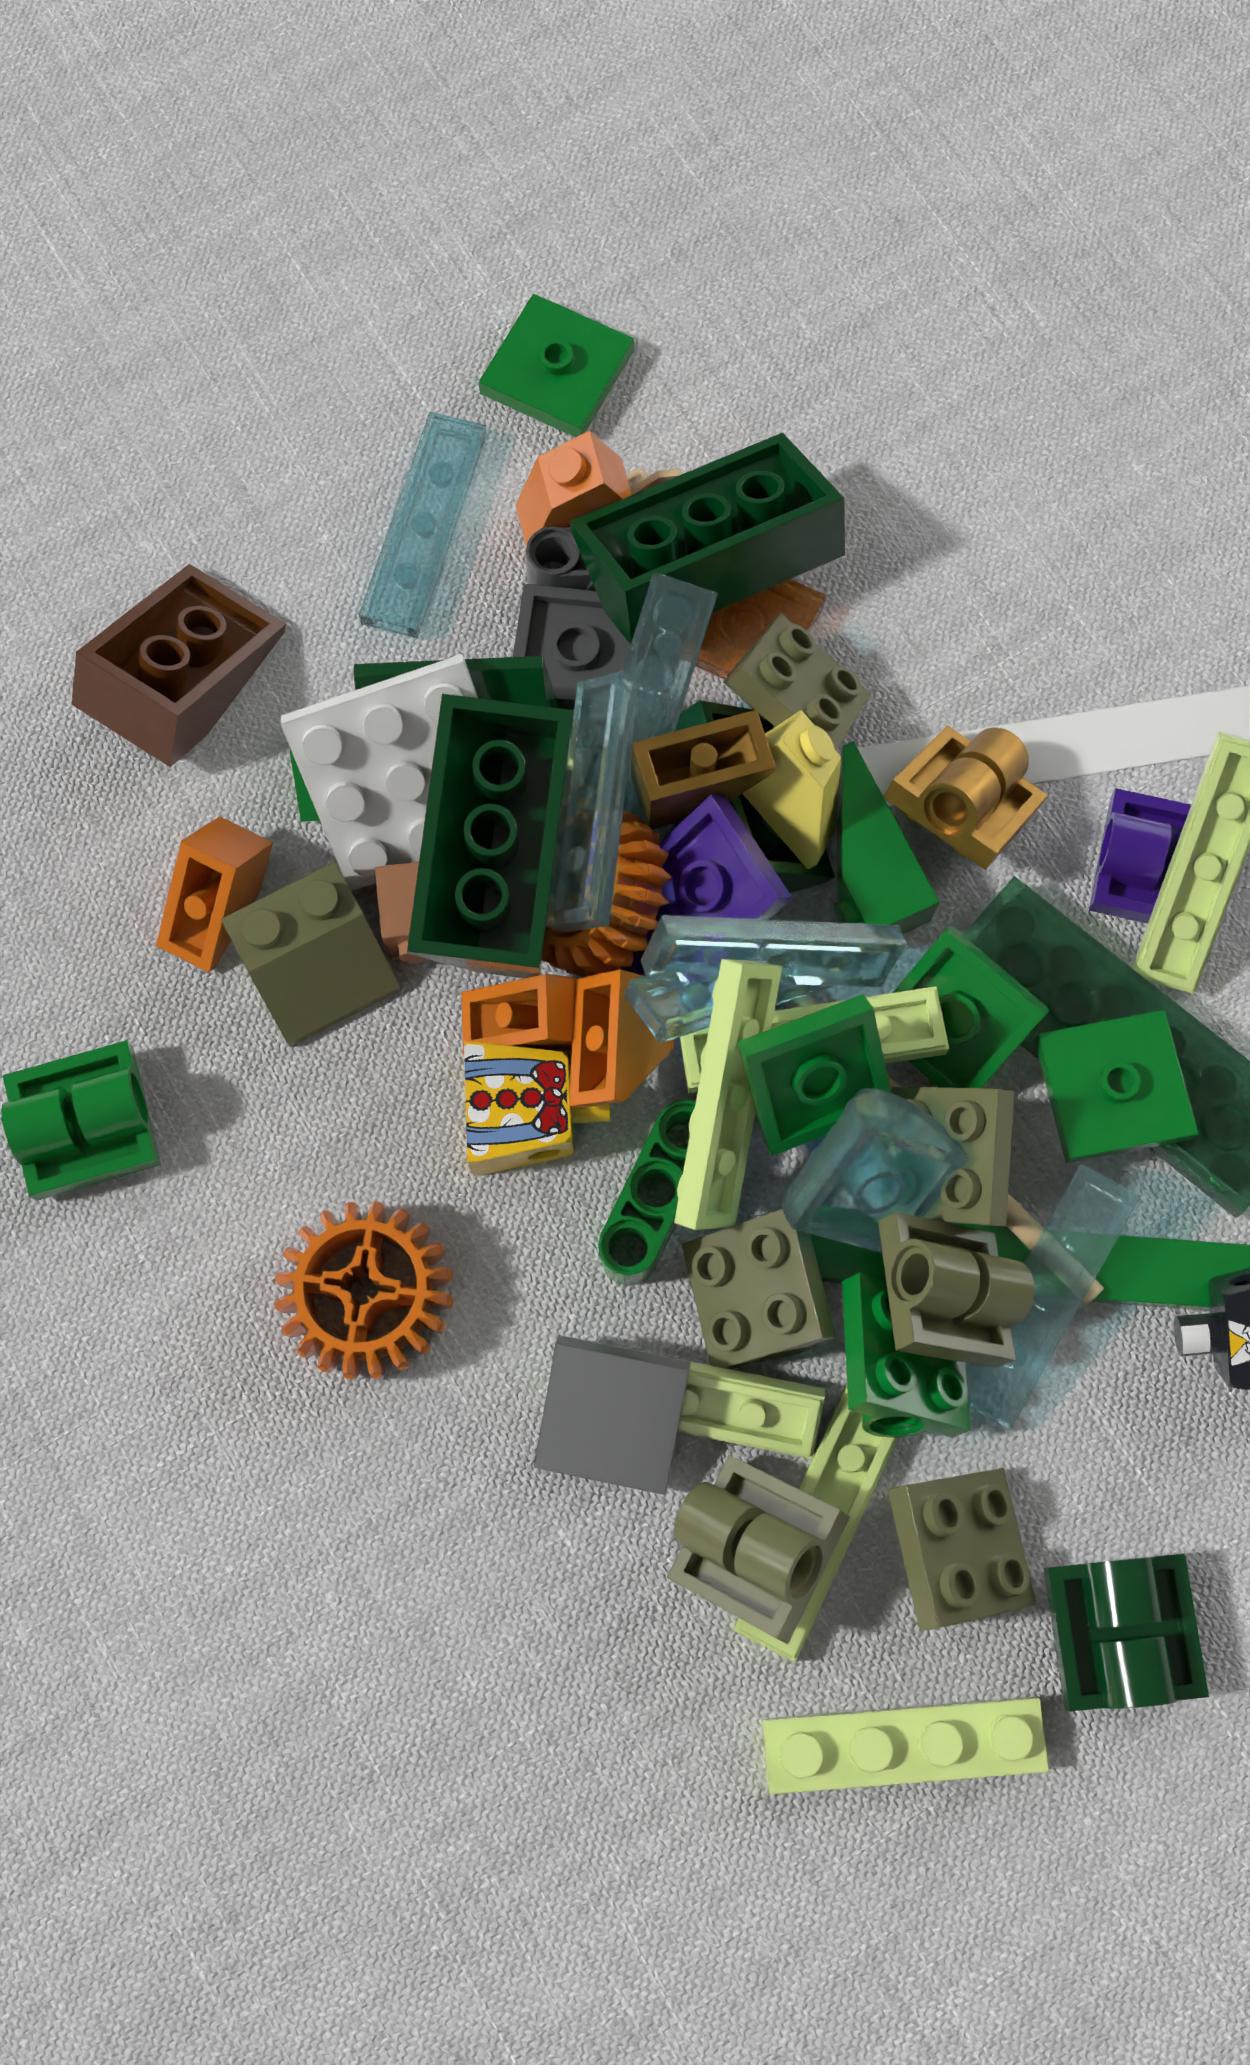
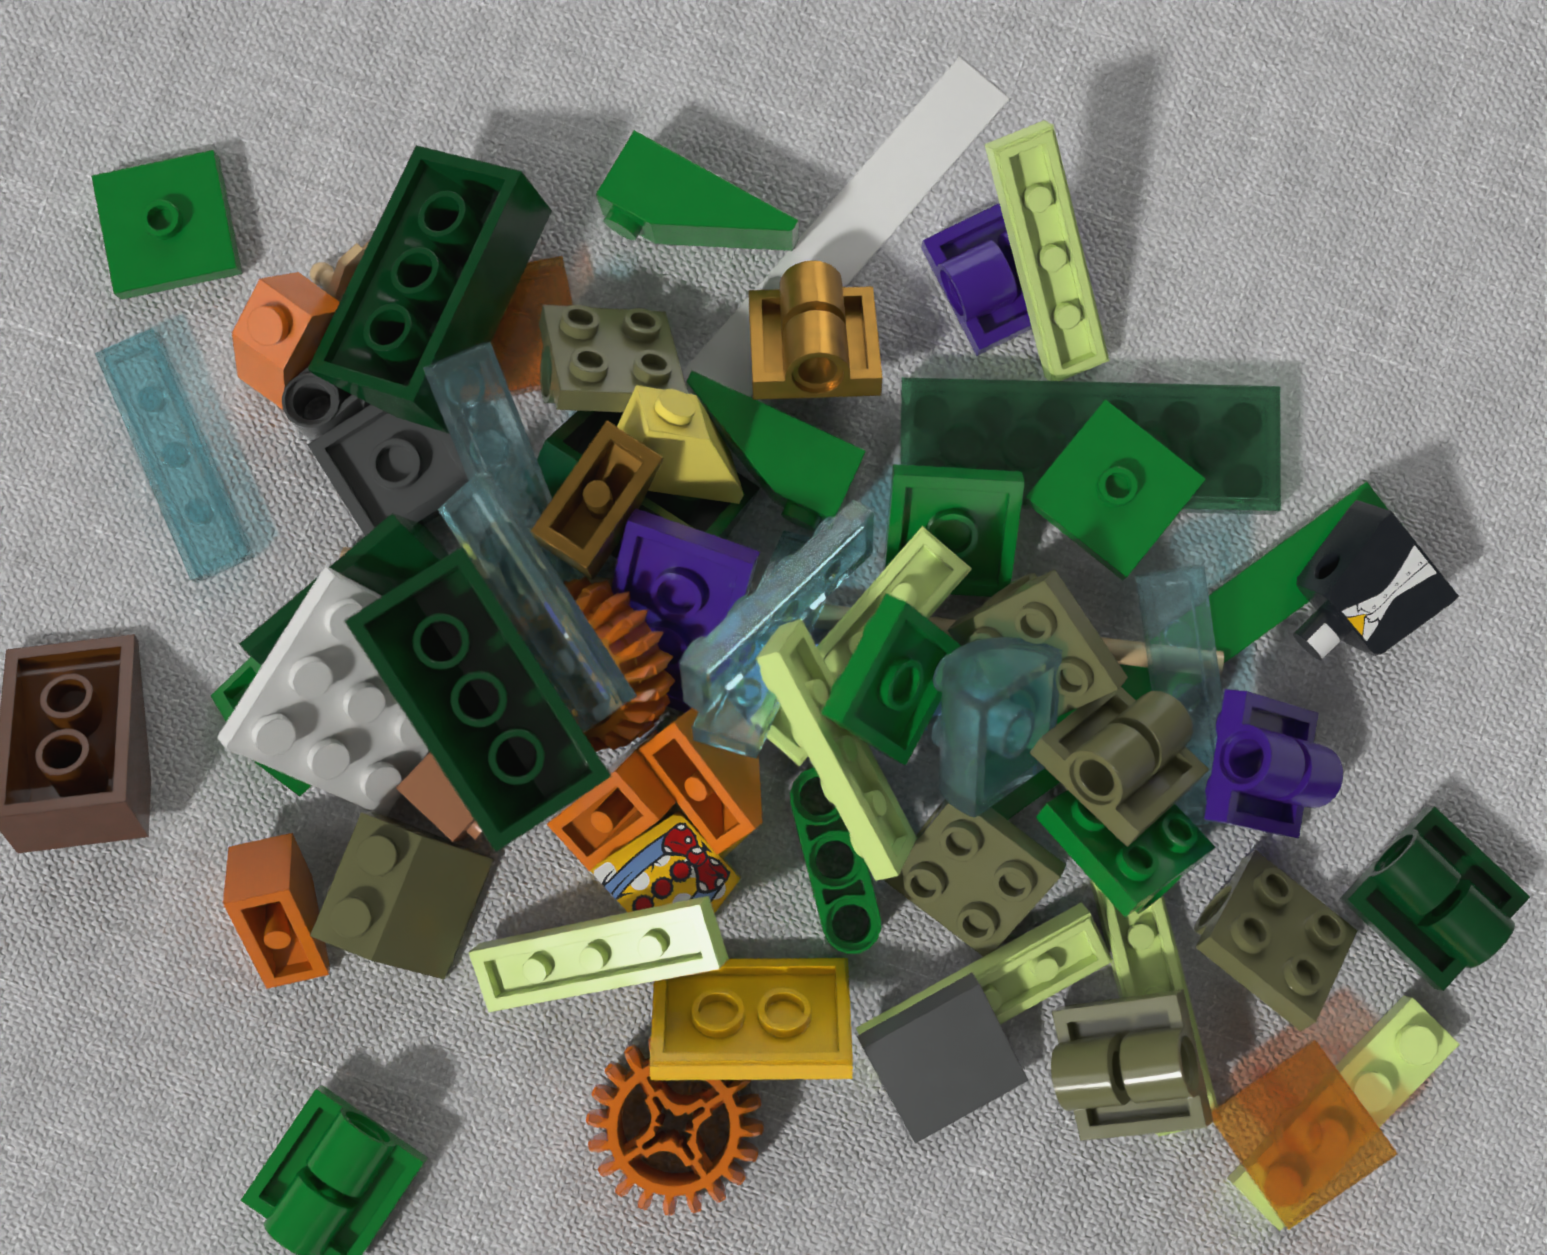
camera: 45 degrees left, 10 degrees up
(418, 1108) = (599, 954): none -> yellowish green plate
(489, 1256) = (754, 1022): none -> yellow tile
(852, 1722) = (1301, 1134): none -> clear orange tile
(951, 629) = (683, 204): none -> green slope
(1067, 1401) = (1268, 765): none -> dark purple plate

